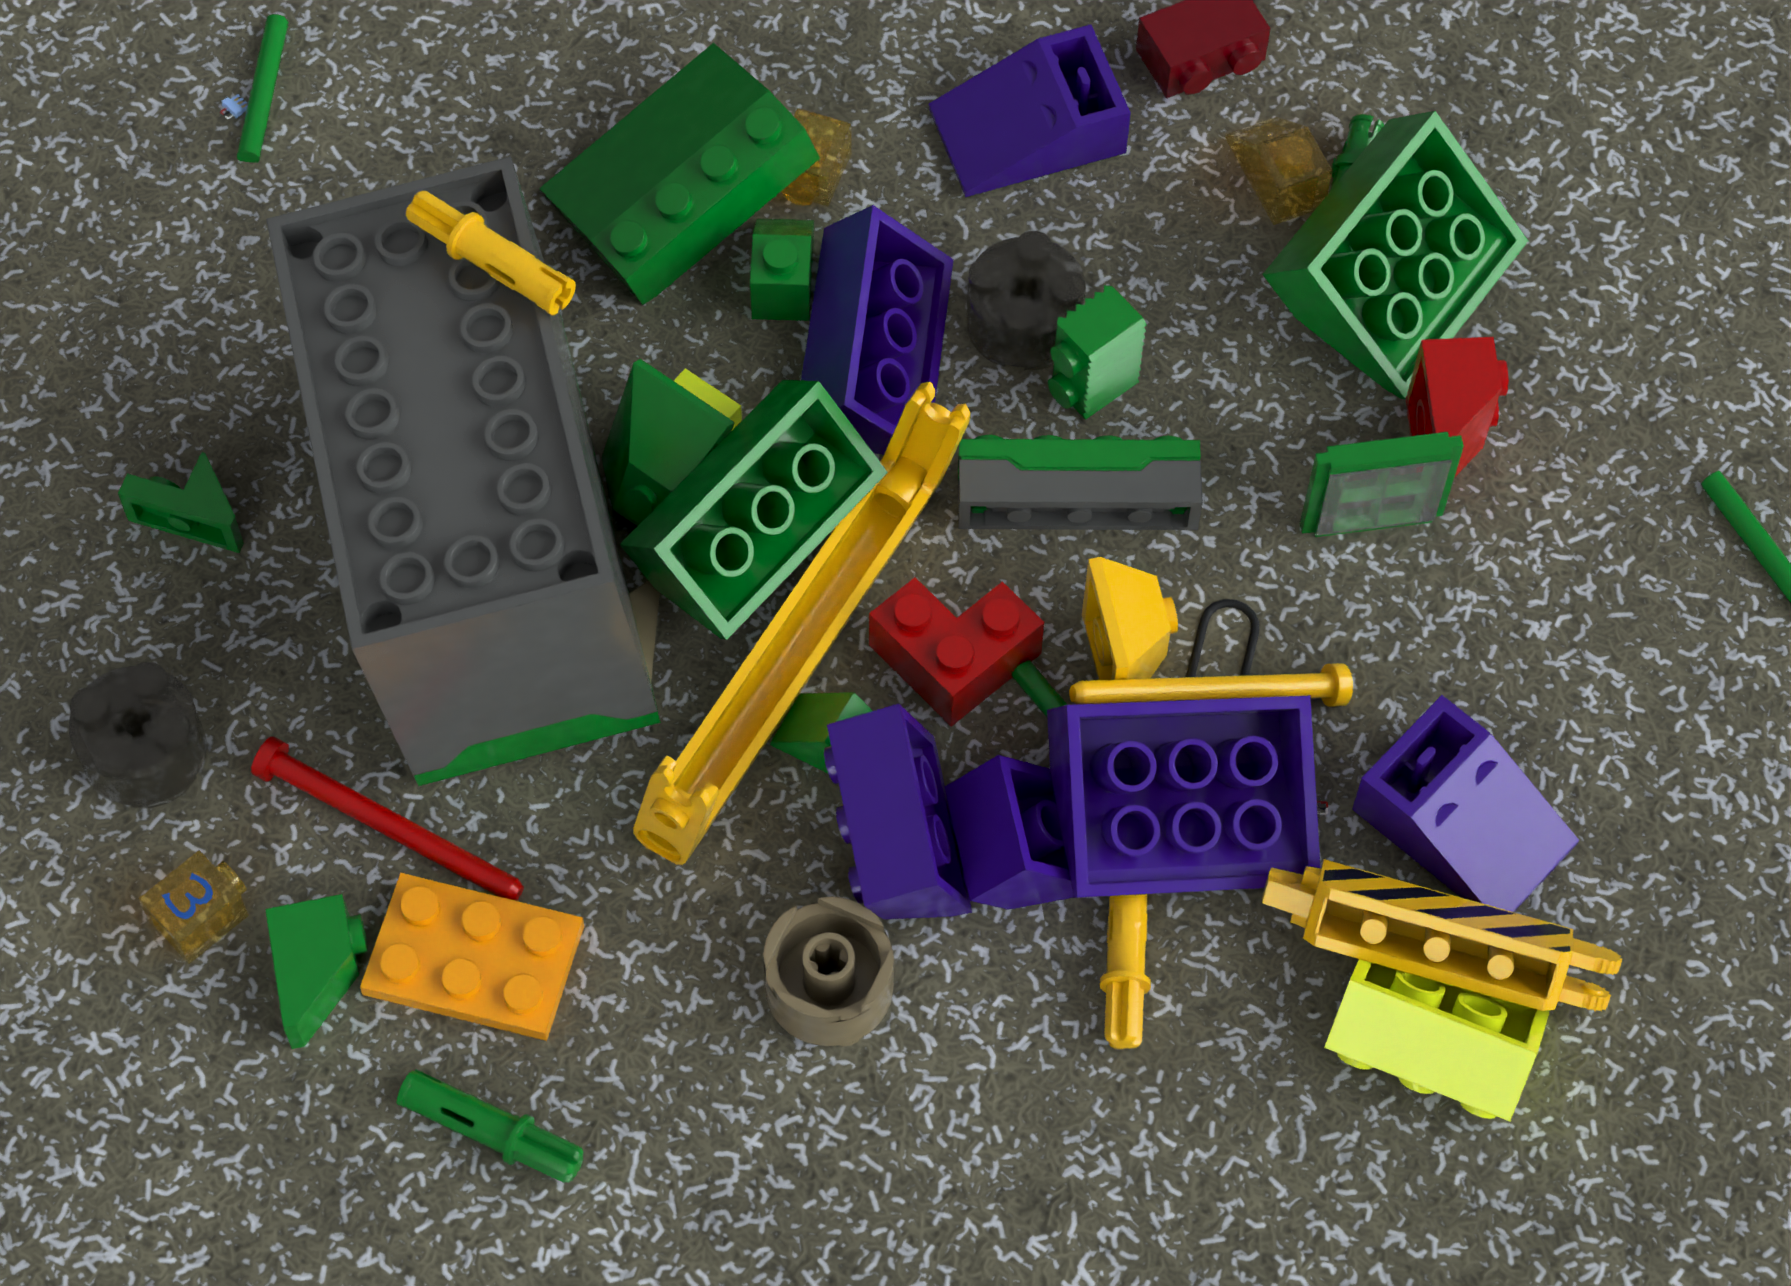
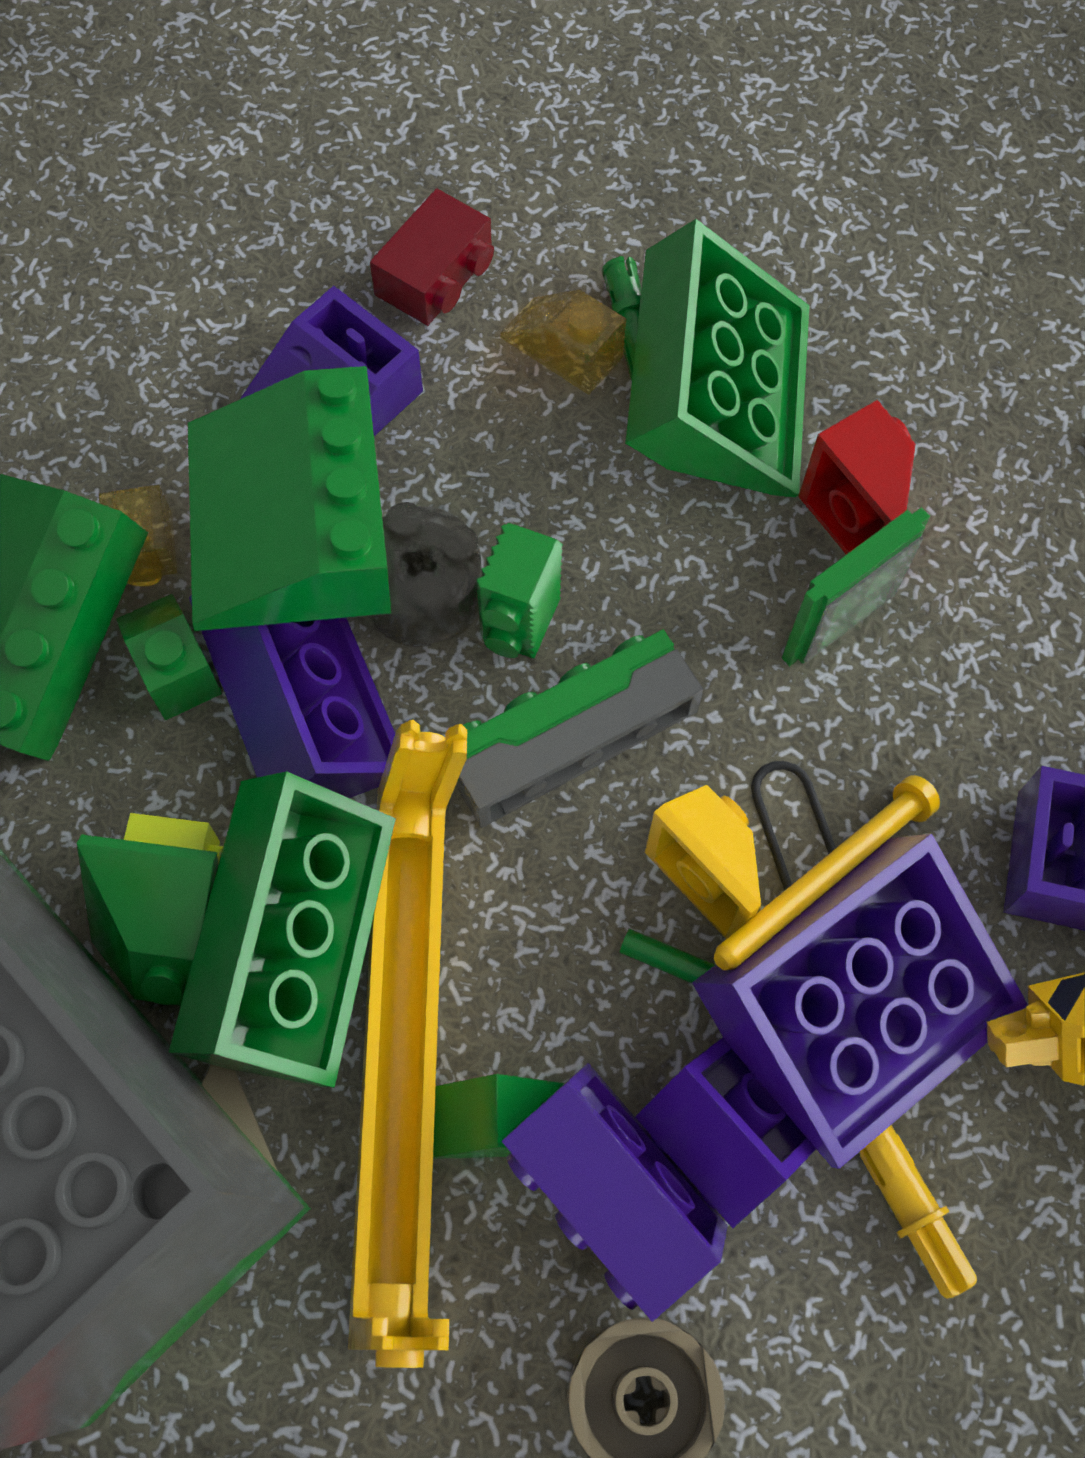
camera: 30 degrees left, 5 degrees up
(945, 186) = (287, 505): none -> green slope
(952, 658) = (557, 974): red brick -> none

